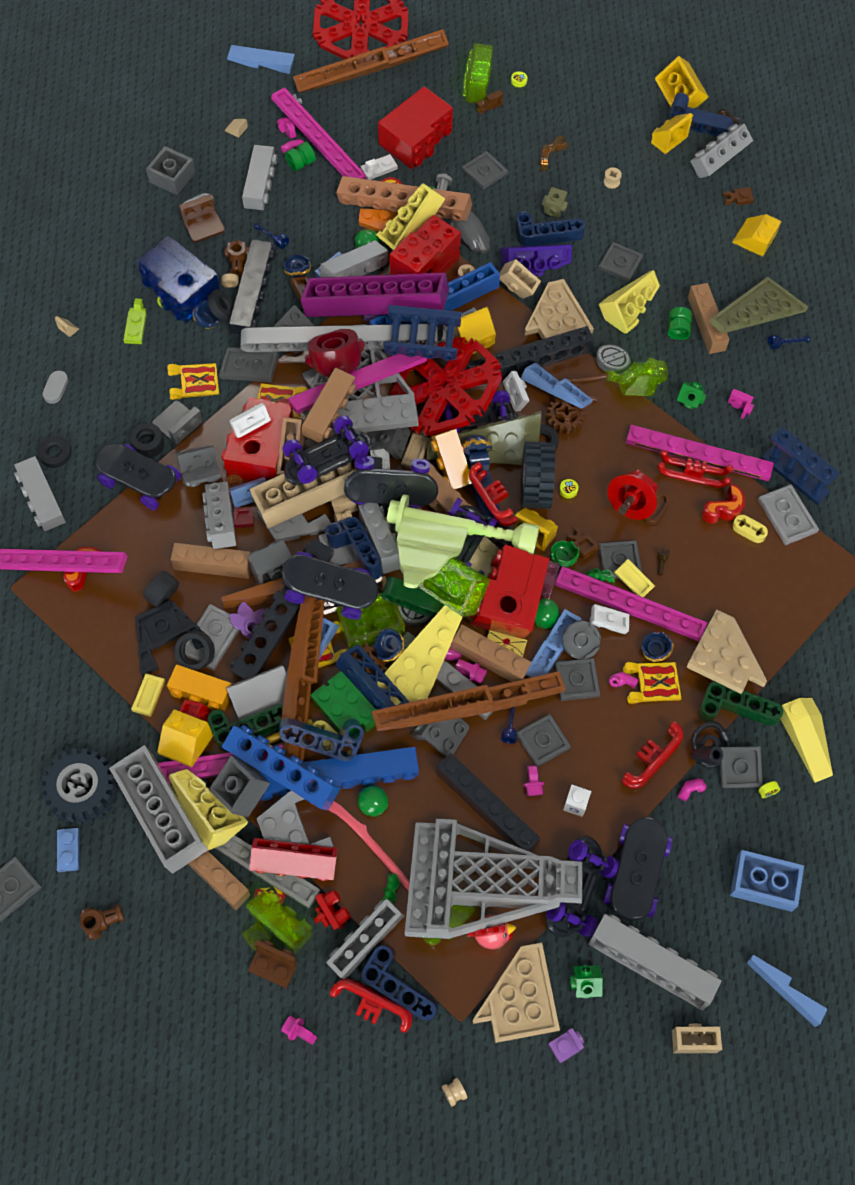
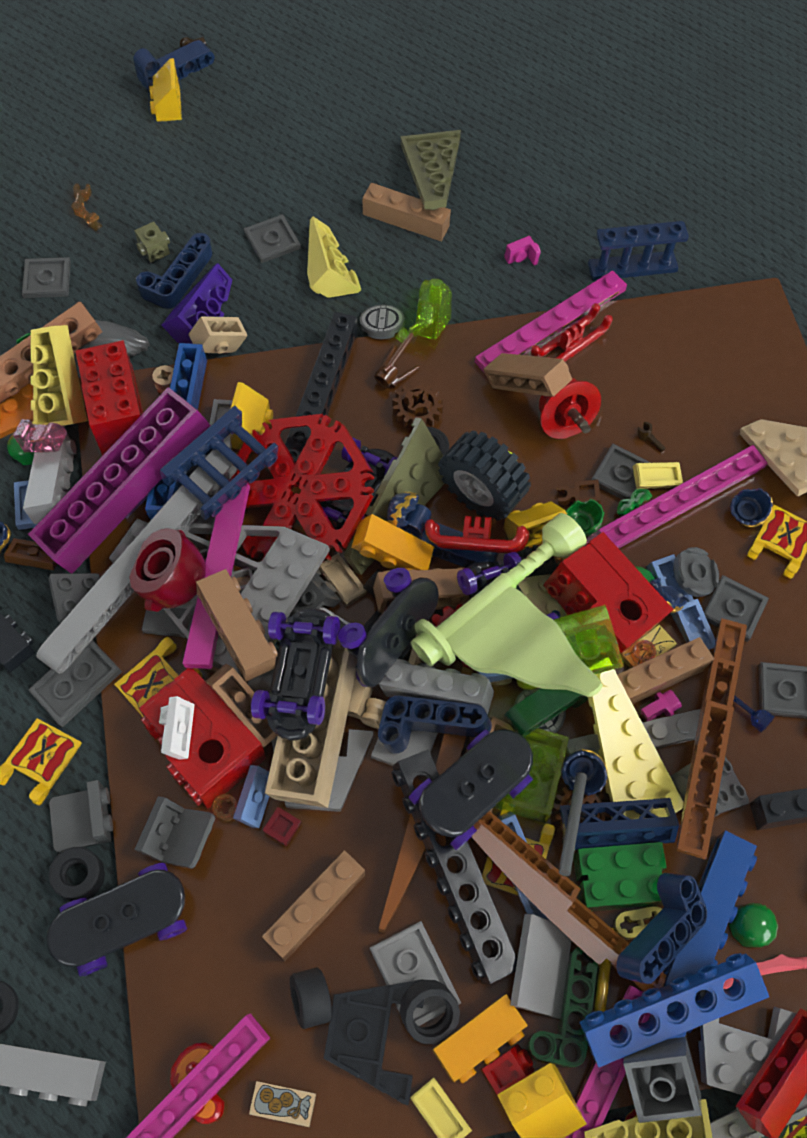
camera: 55 degrees left, 0 degrees up
(100, 615) = (282, 1104): none -> tile
(219, 515) = (265, 852): light grey brick -> none
(246, 618) = (424, 912): medium lavender plate -> none
(268, 563) = (379, 835): dark grey brick -> none
(349, 652) = (572, 824): none -> dark grey bar
(371, 240) = (39, 436): none -> clear pink leg
(443, 181) = (24, 322): light grey piece -> none
(498, 633) = (649, 646): none -> clear orange bush
(516, 388) = (358, 429): white hinge -> none
(544, 628) = (671, 595): none -> dark blue hair
(557, 312) = (288, 331): tan wing -> none
(562, 389) = (390, 385): medium blue slope -> none
(609, 619) = (690, 529): white hinge -> none
(612, 178) = (169, 177): tan wheel -> none
(622, 678) = (762, 564): dark pink arm -> none
(634, 455) = (528, 374): none -> medium nougat brick
(679, 323) = (392, 238): green wheel -> none
(680, 78) = (114, 51): yellow slope -> none
(686, 397) = (482, 283): green brick -> none
(721, 150) = (227, 72): light grey brick -> none
(725, 510) = (638, 335): red animal -> none
(740, 196) = (288, 95): reddish brown plate -> none
(750, 528) = (670, 341): light yellow beam -> none
(757, 233) = (345, 110): yellow slope -> none
(777, 341) = (478, 176): clear blue hinge -> none
(788, 514) = (675, 299): light grey tile -> none

